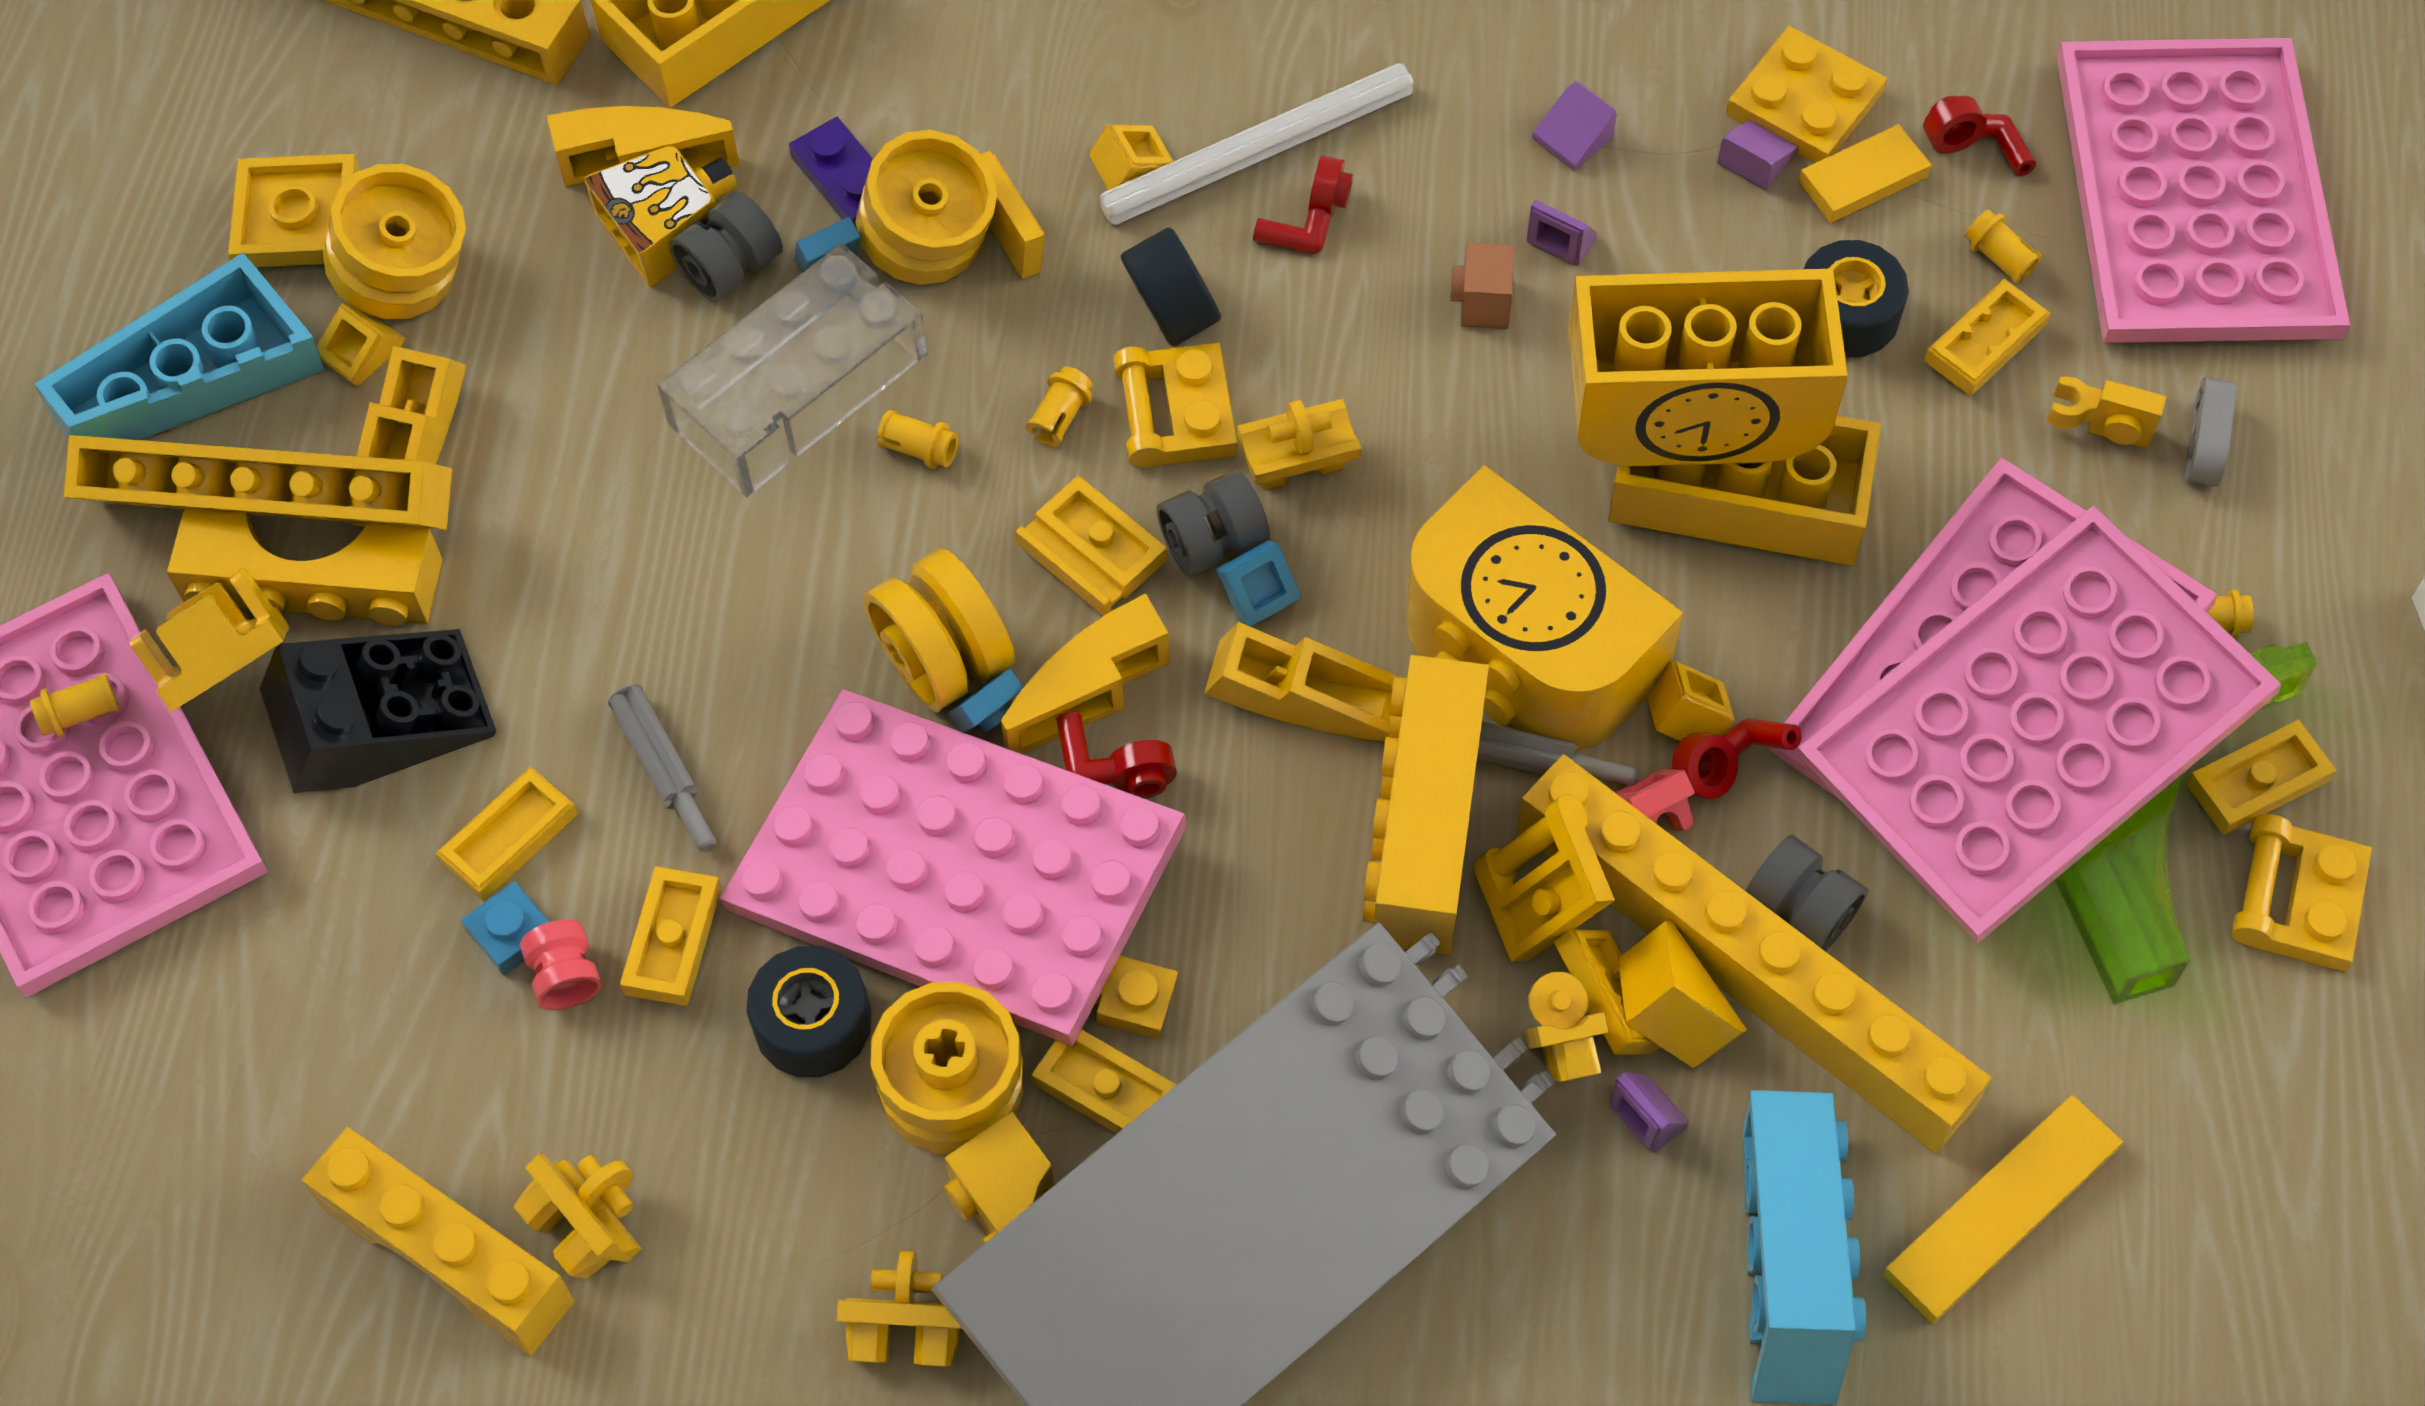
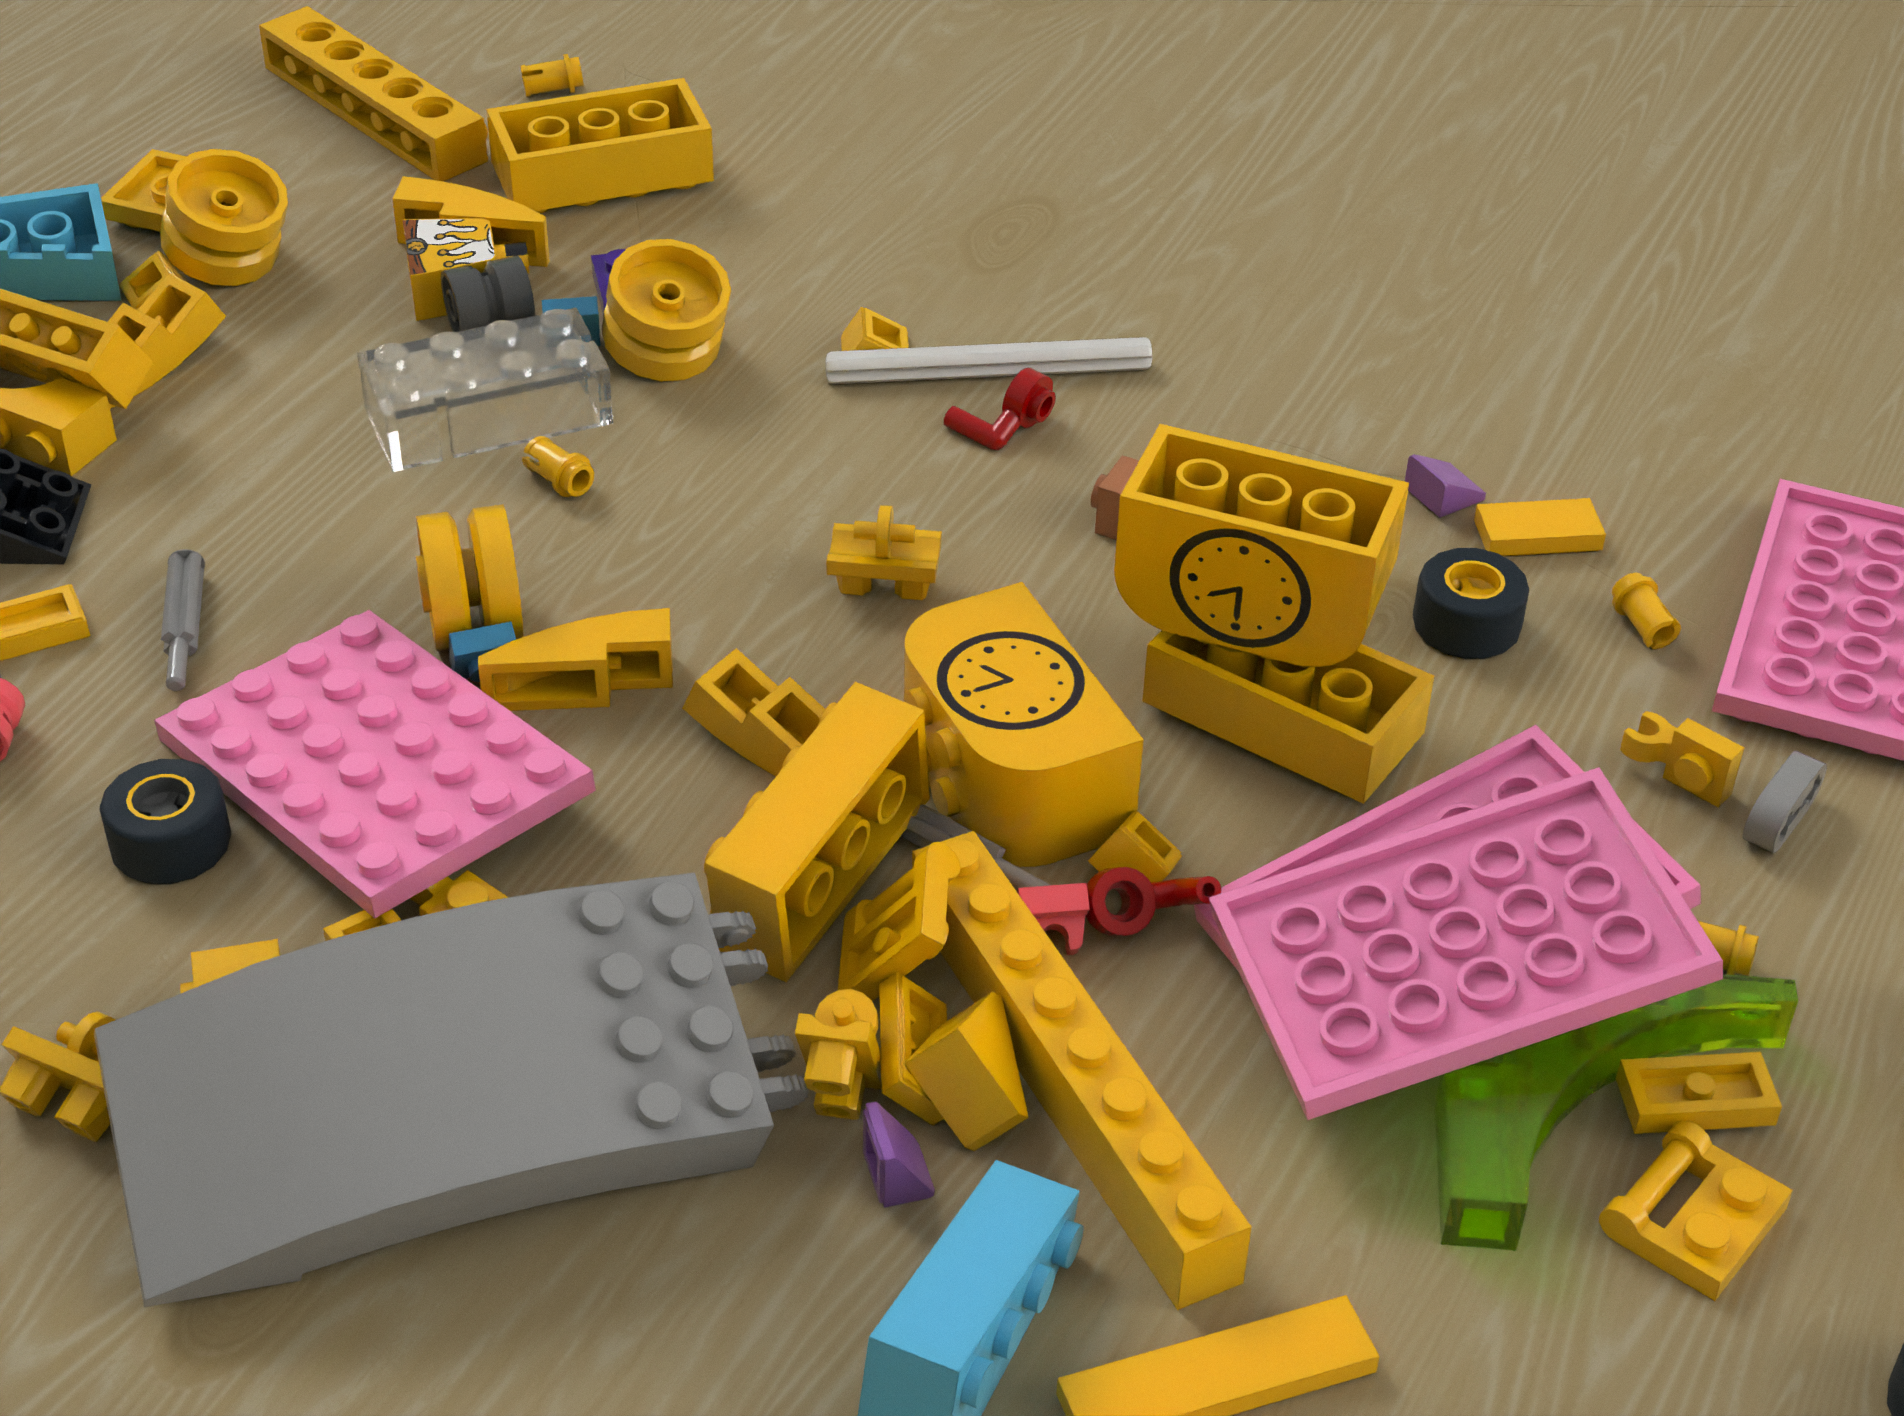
camera: 20 degrees right, 20 degrees down
(671, 936) = (92, 733): yellow plate -> none
(946, 1065) = (249, 882): yellow wheel -> none
(1015, 224) = (738, 345): yellow tile -> none
(1066, 394) = (706, 473): yellow pin -> none
(1091, 545) = (656, 572): yellow plate -> none
(1135, 768) = (582, 732): red plate -> none
(1171, 286) = (841, 420): black wheel -> none
(1195, 400) = (820, 500): yellow plate -> none
(1232, 514) = (792, 587): dark grey wheel -> none
(1259, 583) = (784, 642): dark azure plate -> none
(1576, 126) = (1284, 421): medium lavender slope -> none
(1804, 895) = (1158, 1027): dark grey wheel -> none
(1807, 94) = (1516, 458): yellow plate -> none
(1959, 122) = (1658, 517): red plate -> none
(1987, 337) = (1592, 670): yellow plate -> none

